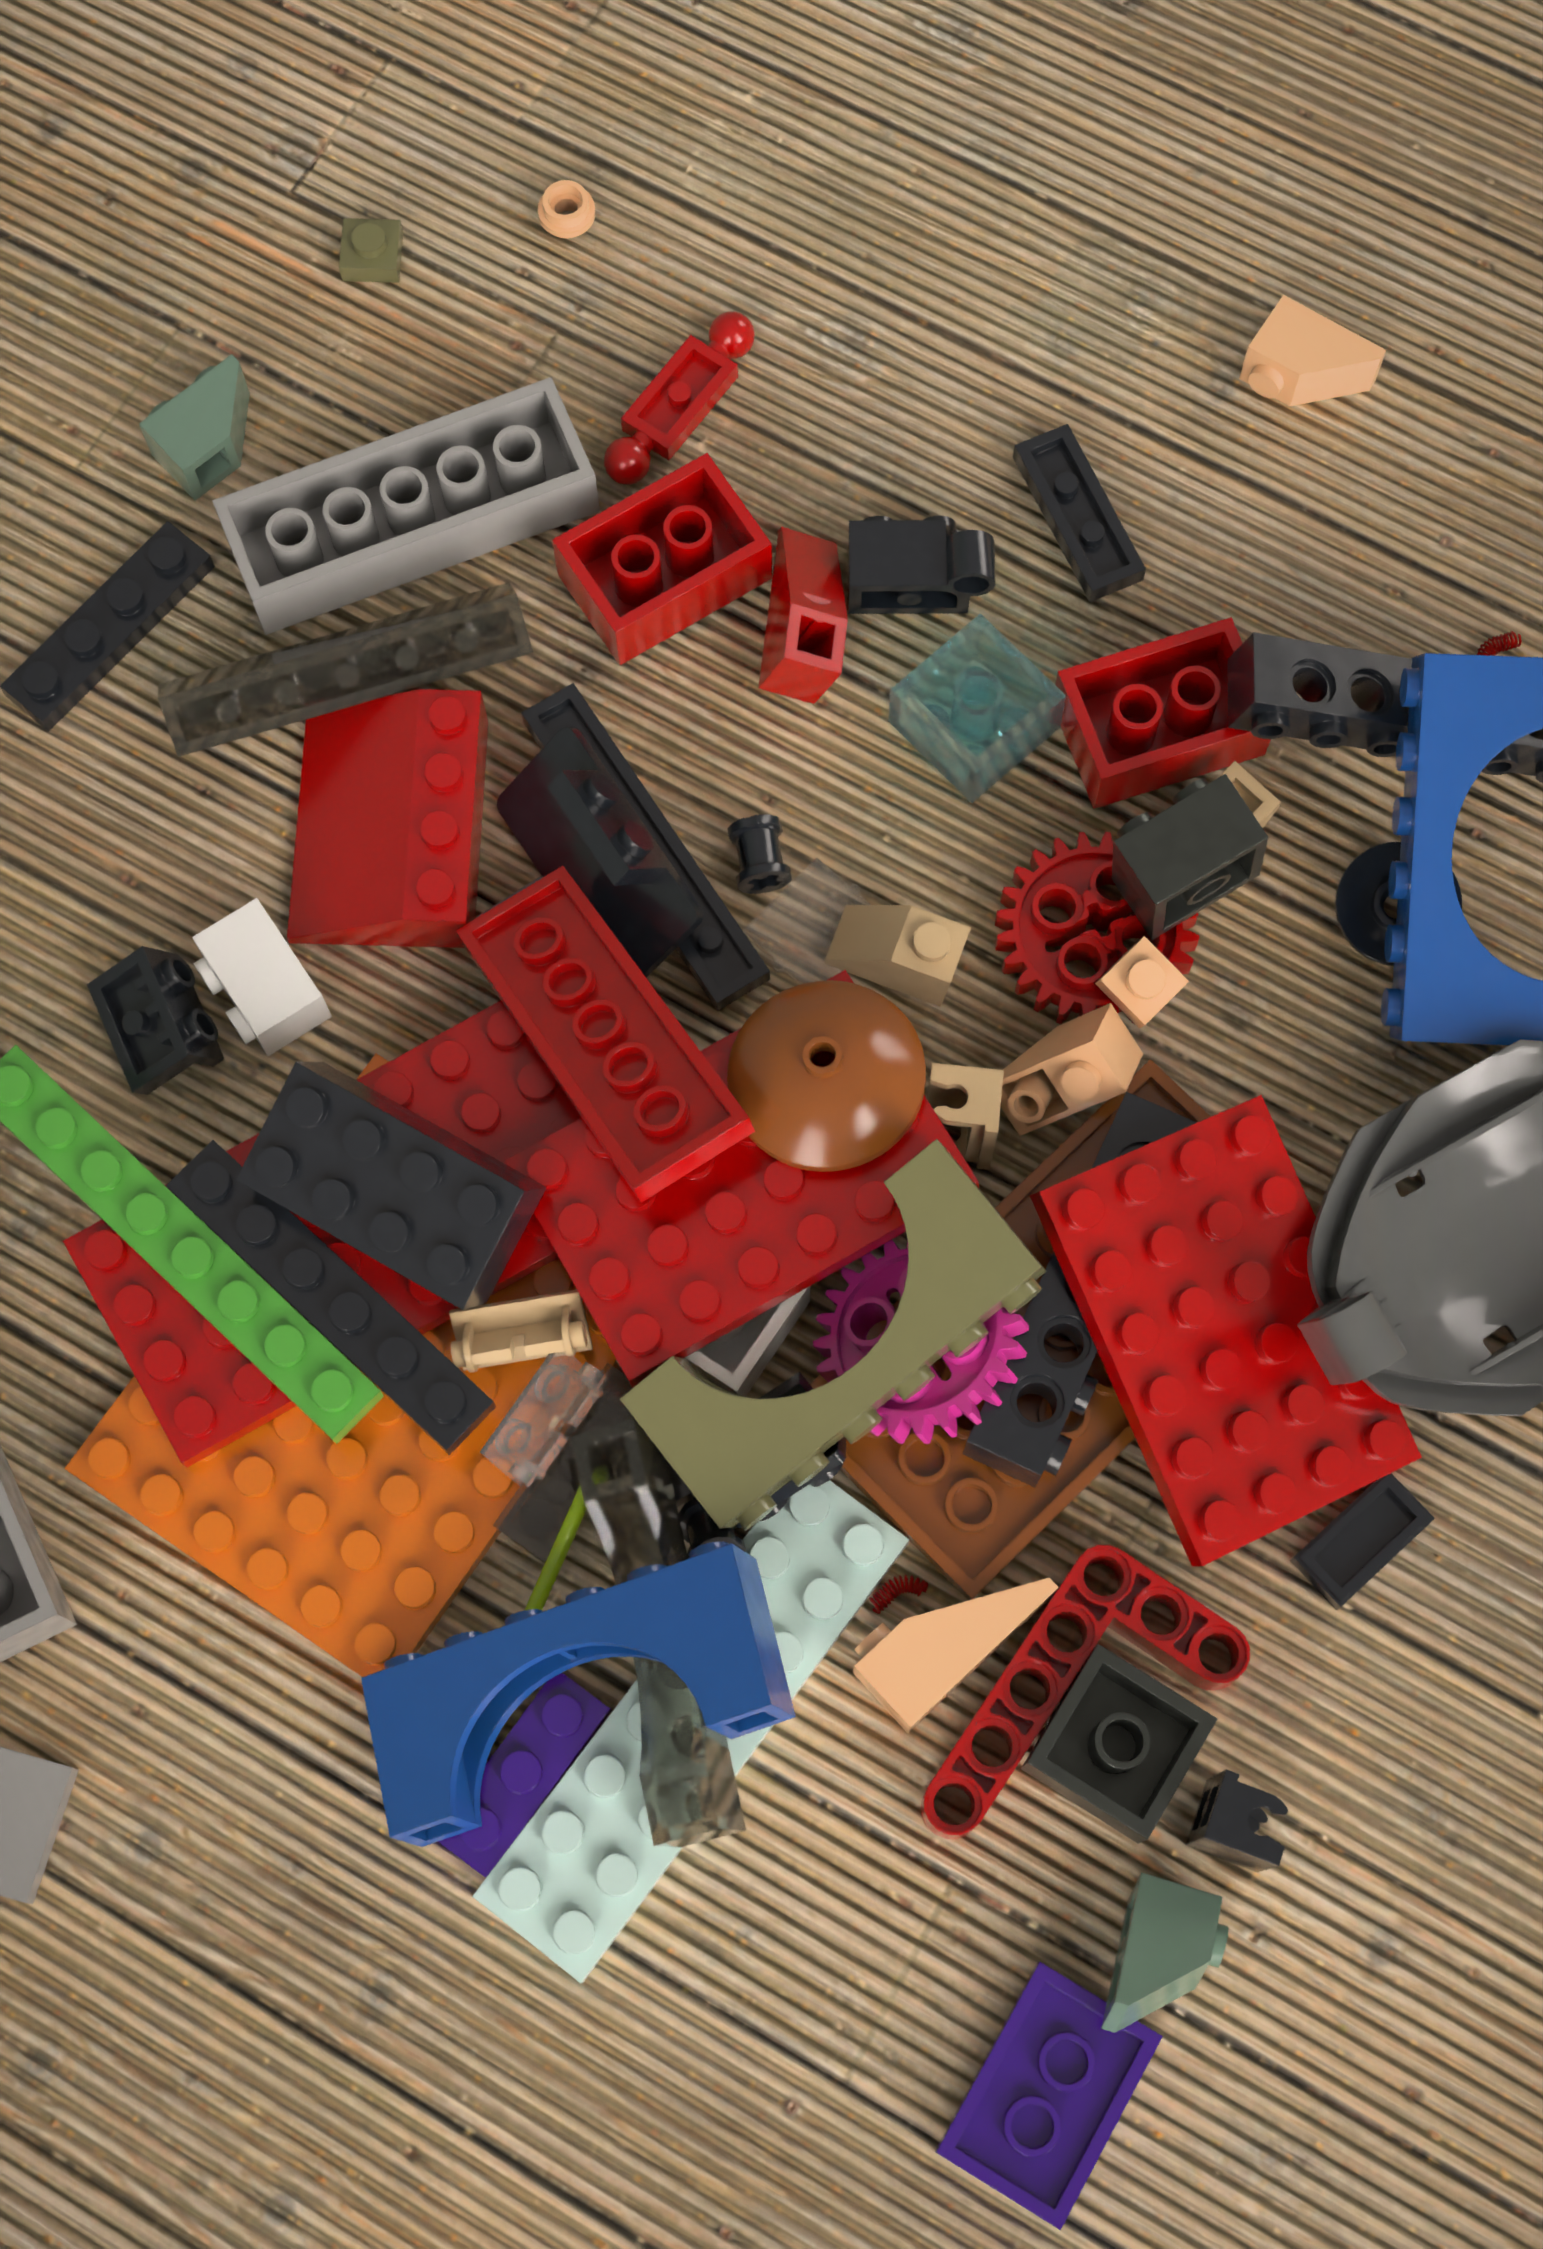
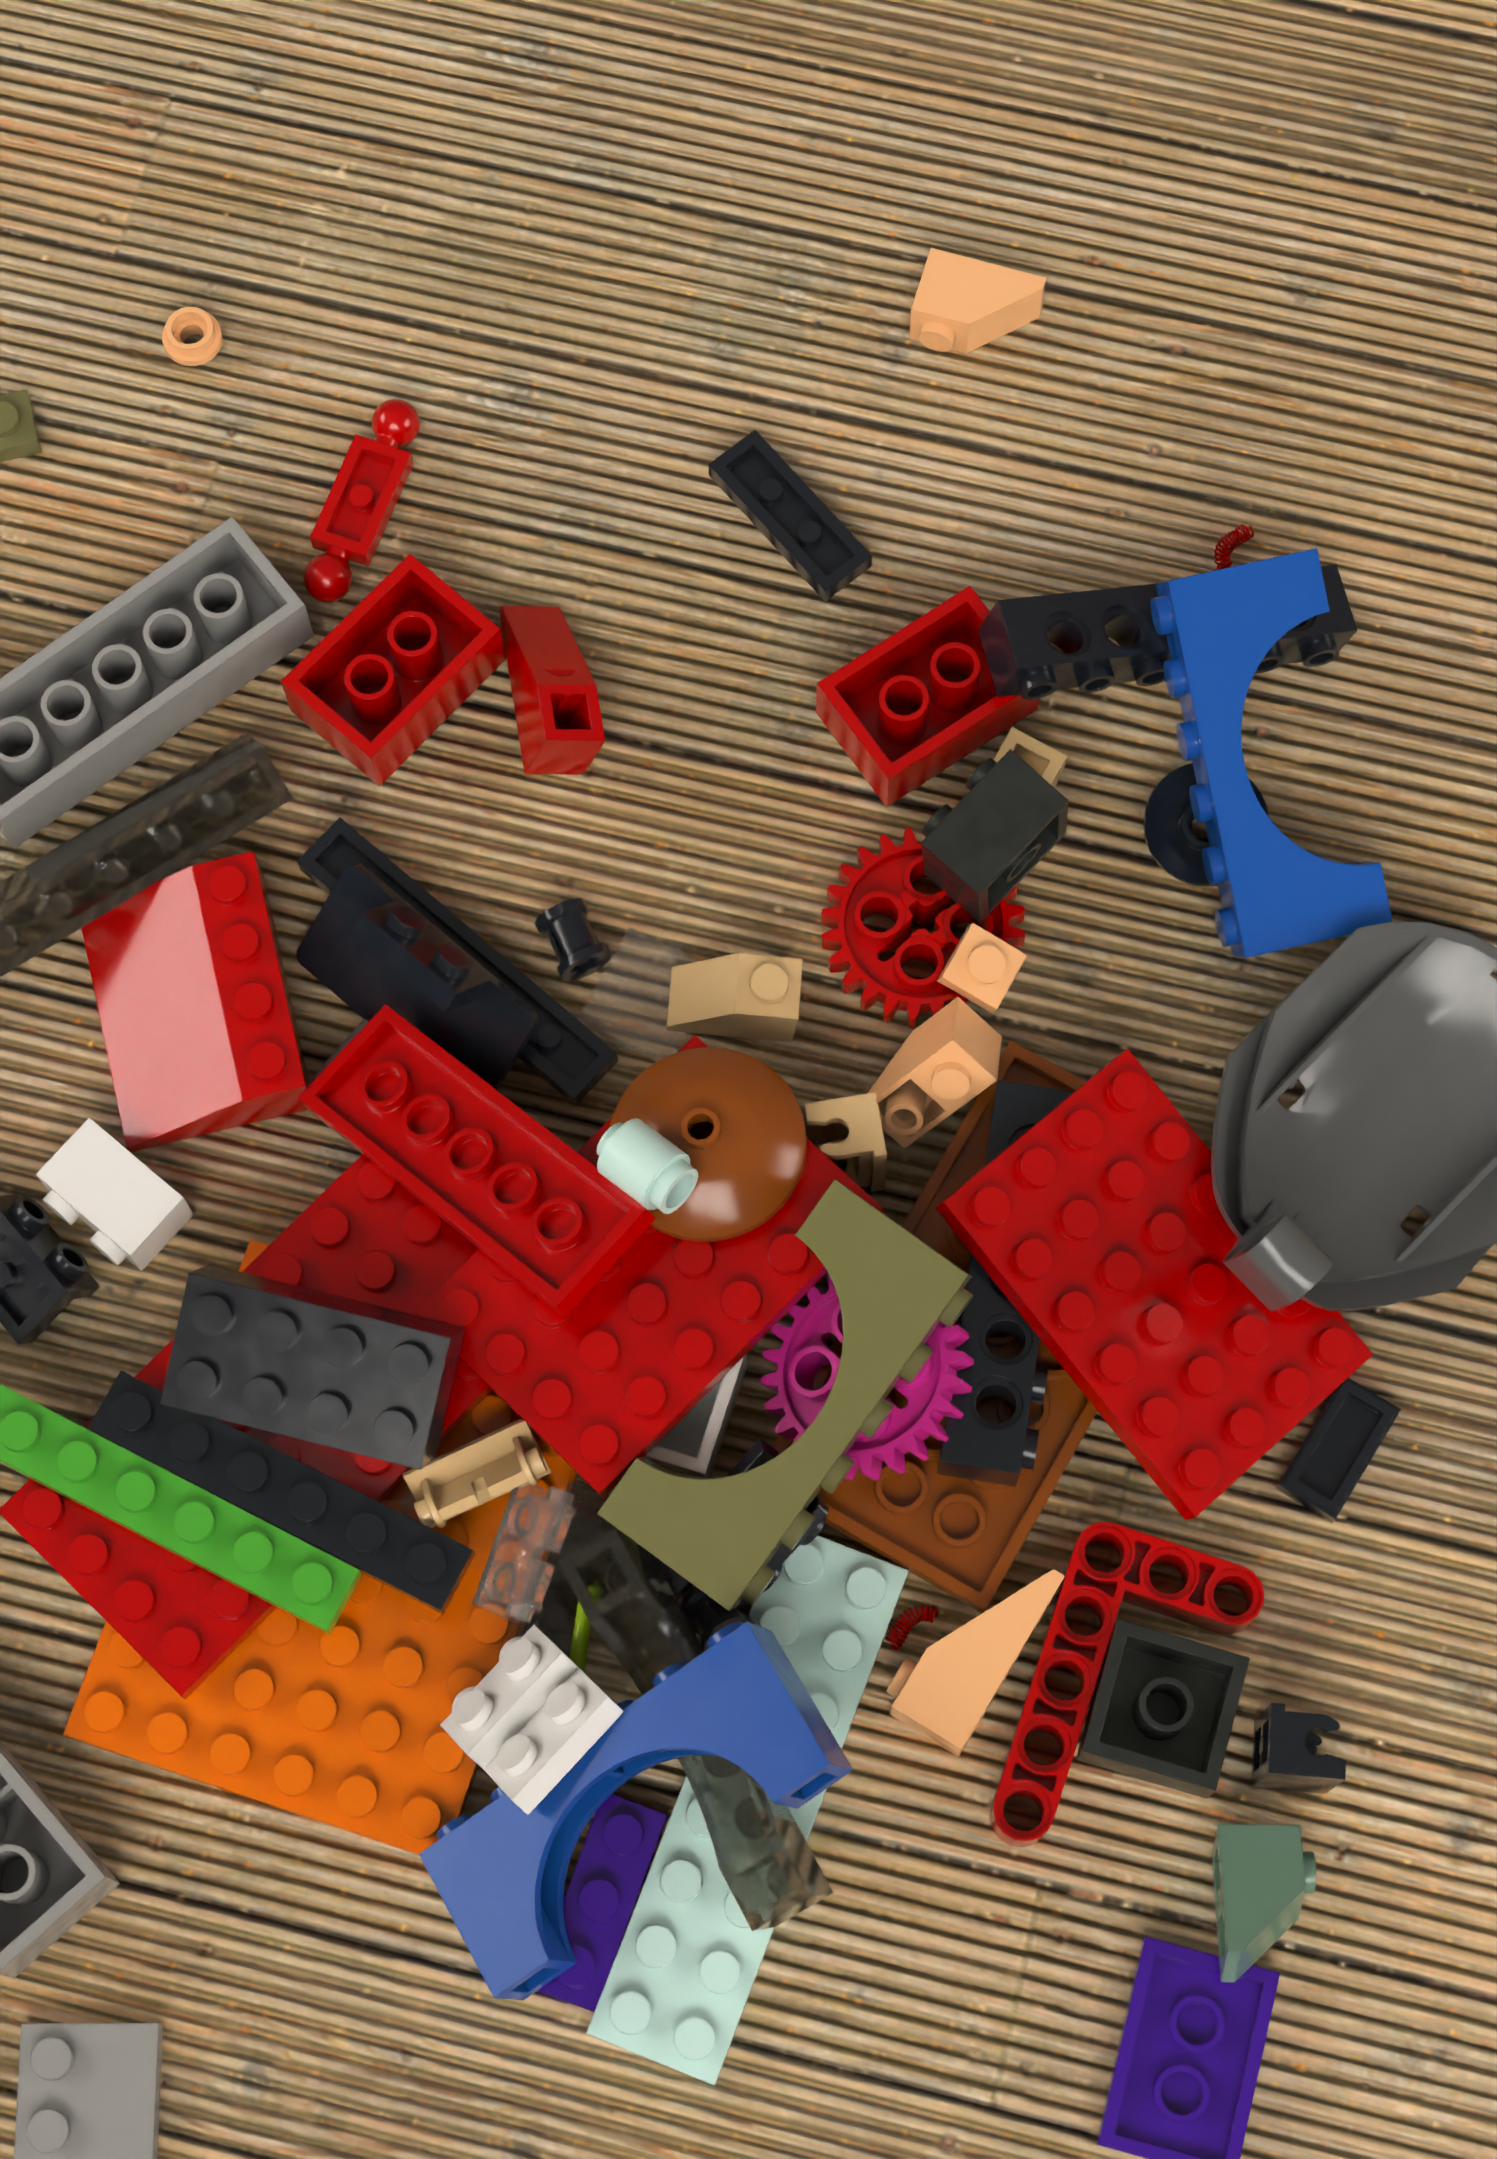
camera: 15 degrees left, 0 degrees up
(502, 1578) = (530, 1718): none -> white plate
(759, 1077) = (646, 1166): none -> light aqua brick
(917, 566) = (646, 610): black hinge -> none
(976, 708) = (745, 738): clear light blue brick -> none

